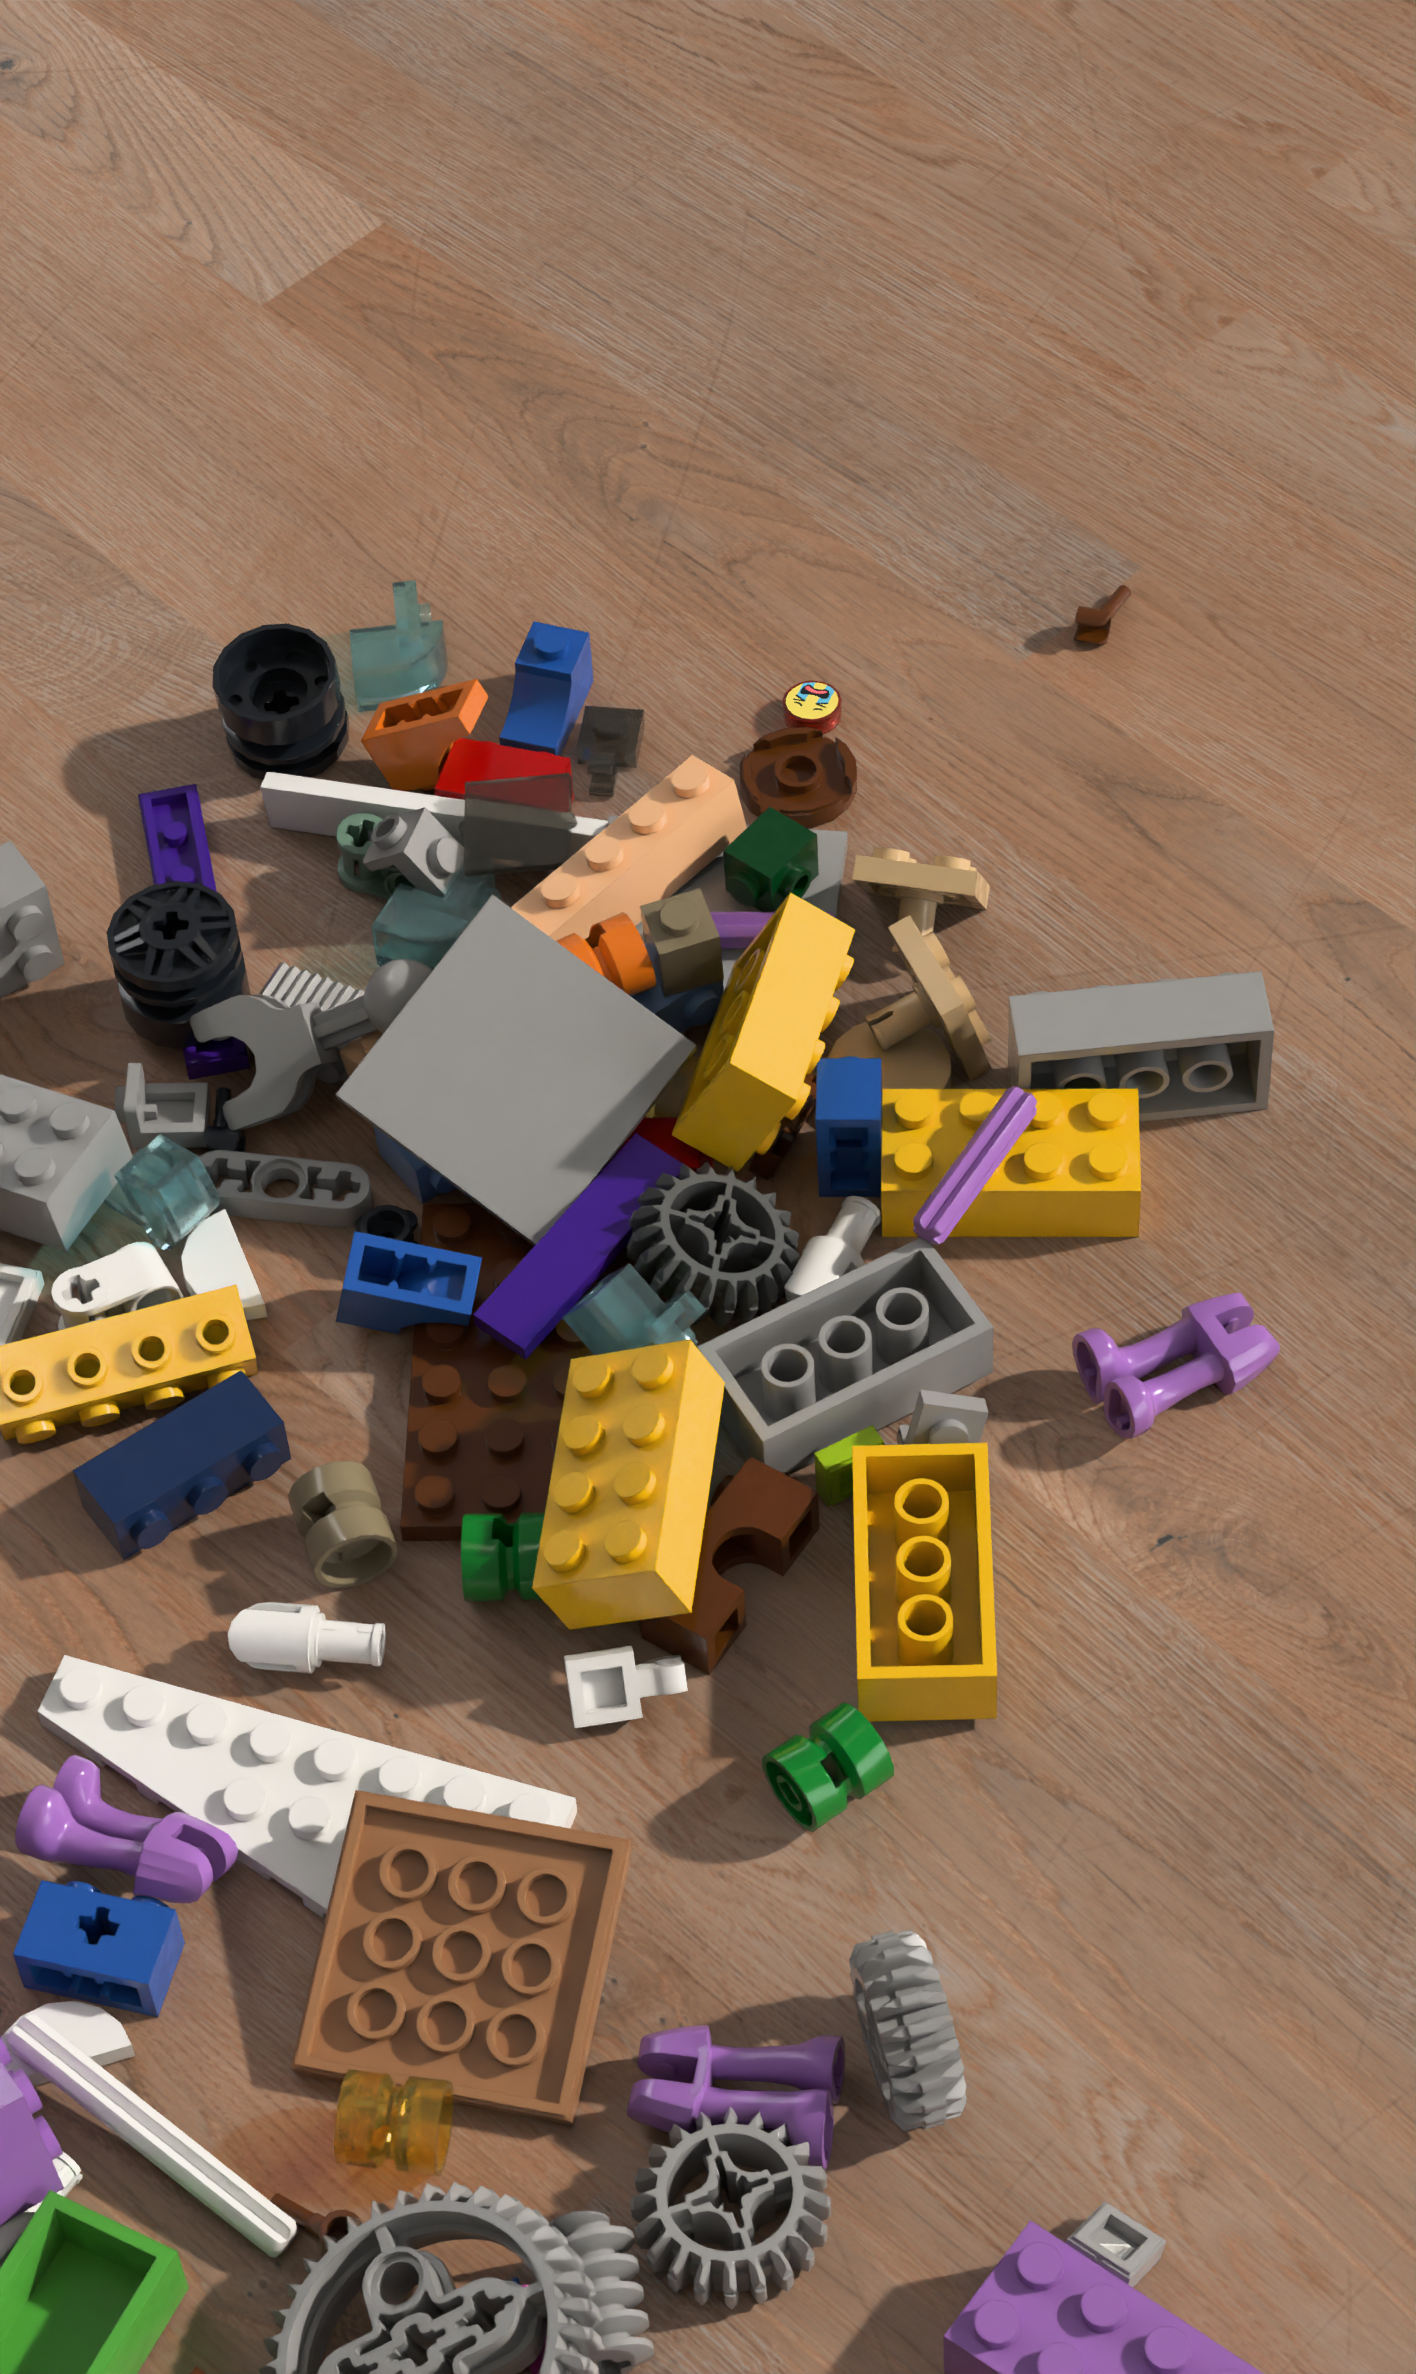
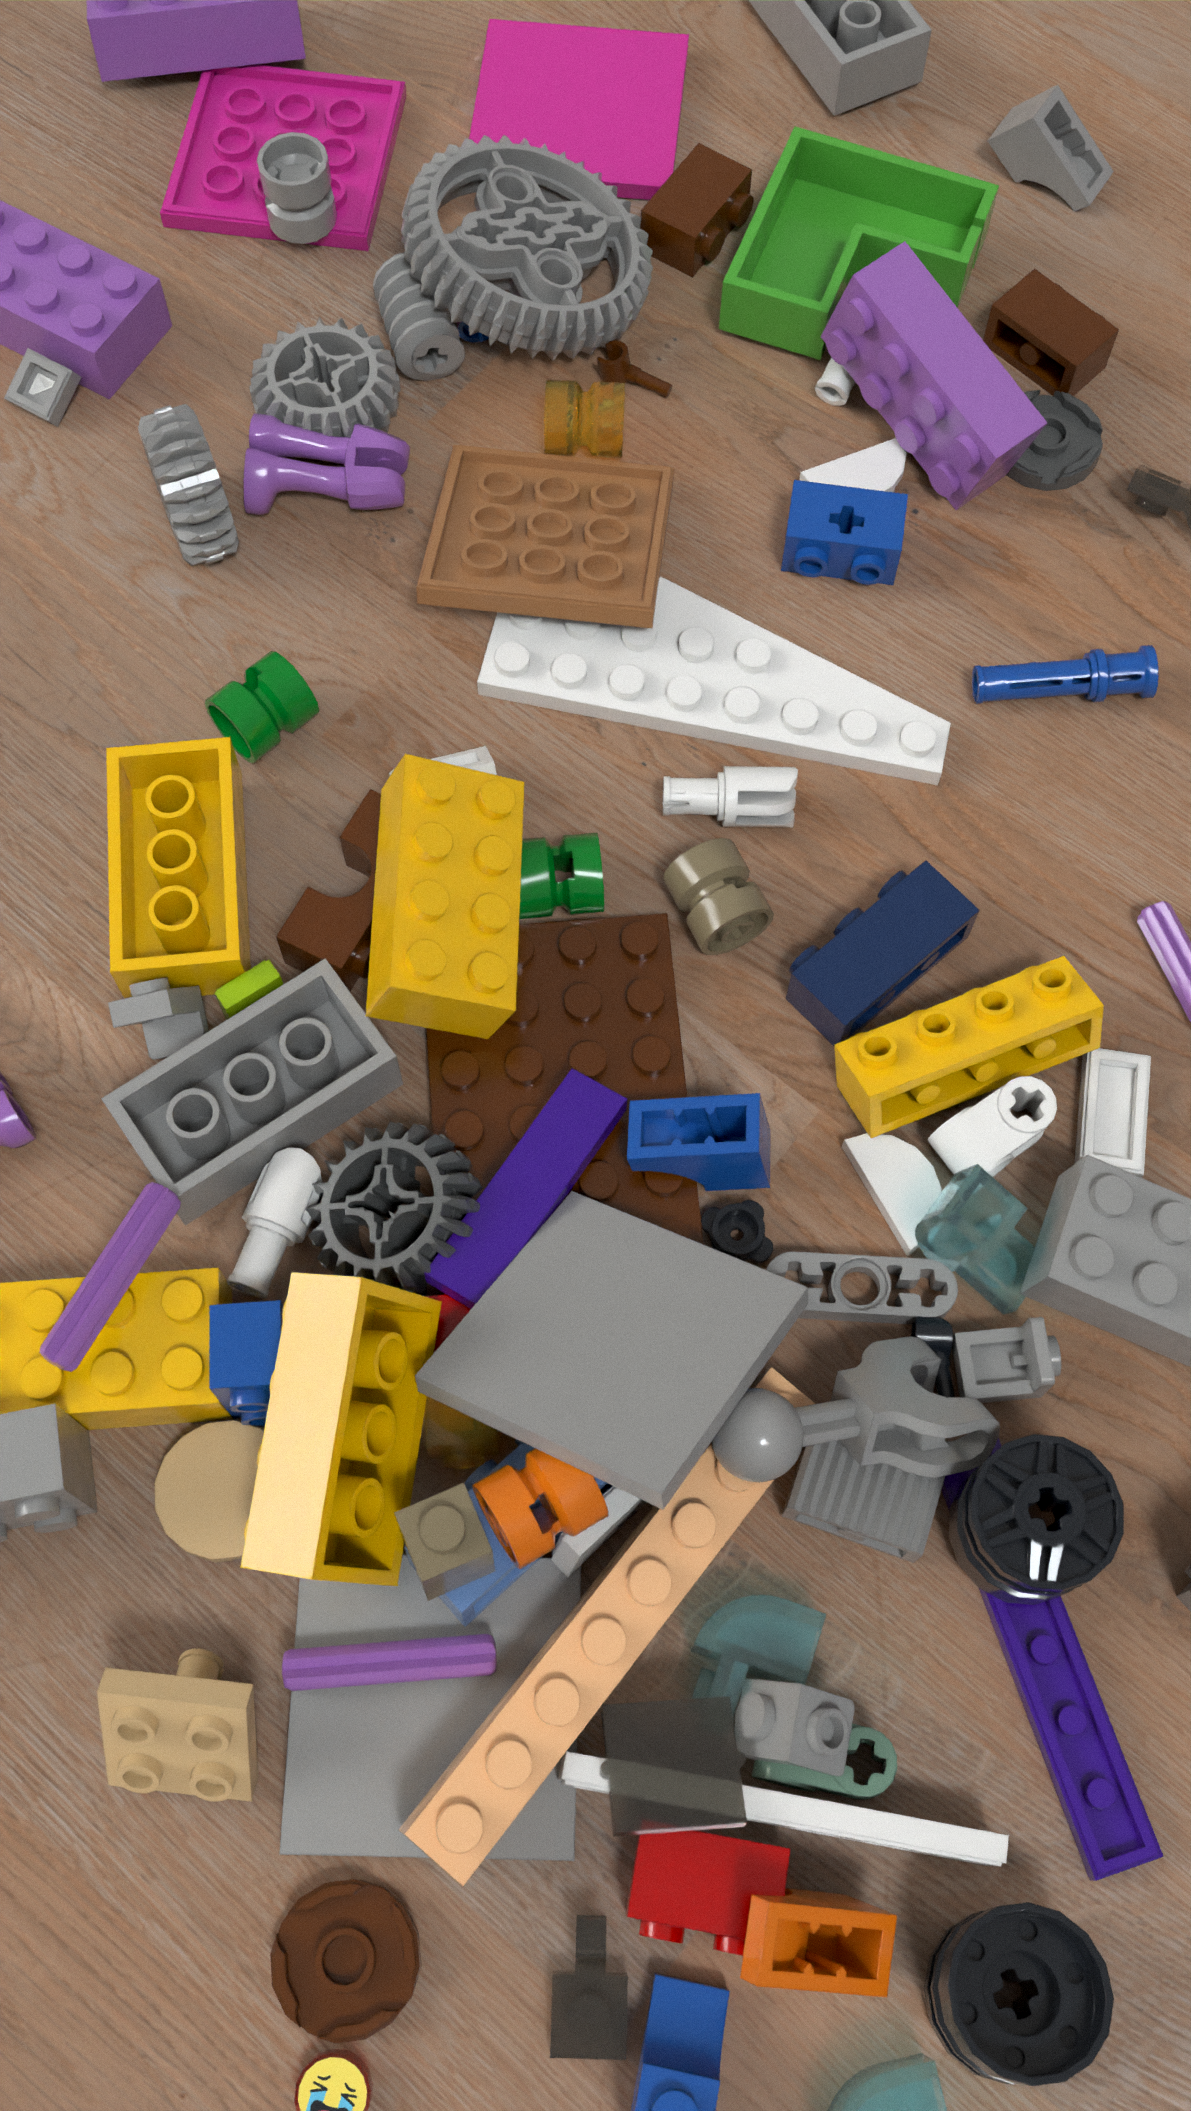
camera: 170 degrees right, 15 degrees up
(153, 2135) = (771, 407): white axle -> none
(167, 1856) = (895, 597): medium lavender piece -> none
(628, 1314) = (458, 1085): clear light blue brick -> none
(770, 861) = (362, 1754): dark green brick -> none
(936, 1000) = (165, 1545): tan plate -> none

